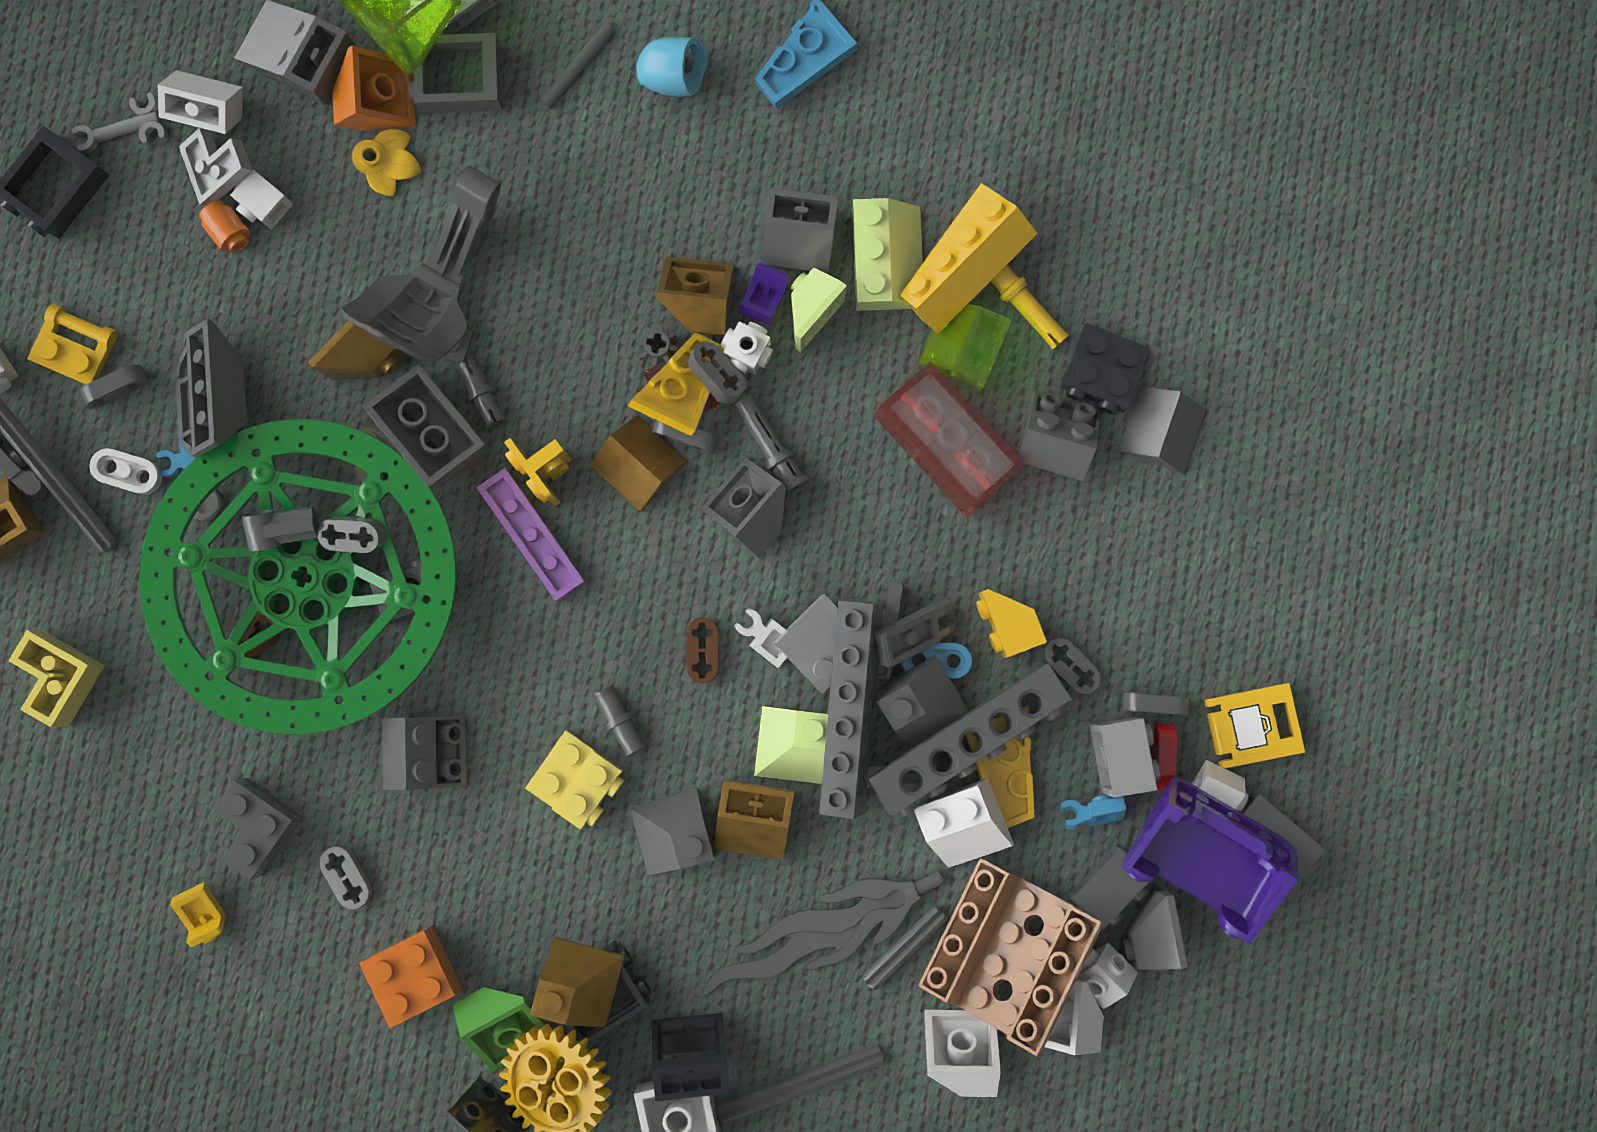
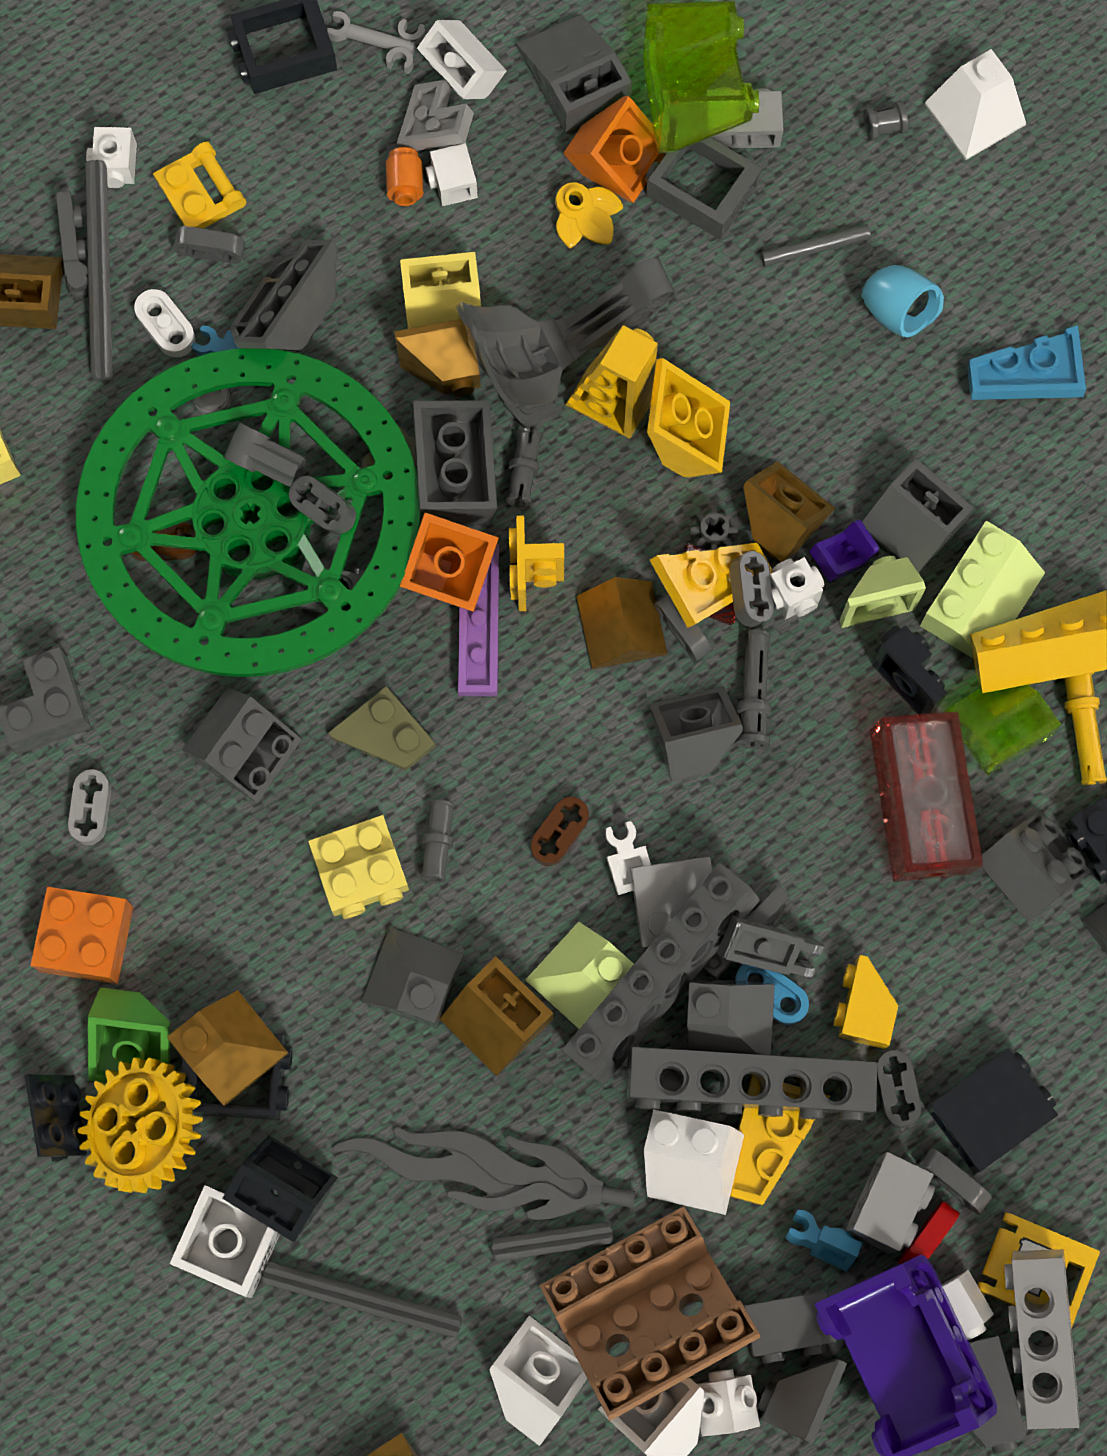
camera: 35 degrees right, 10 degrees down
(316, 301) = (437, 285): none -> light yellow slope
(478, 510) = (449, 562): none -> orange slope
(506, 282) = (618, 382): none -> yellow wedge
(522, 667) = (385, 732): none -> olive wing
(579, 277) = (687, 422): none -> yellow slope
(864, 351) = (902, 664): none -> black plate
(1148, 634) = (993, 1110): none -> black brick
(1324, 817) = (1058, 1405): none -> light grey brick

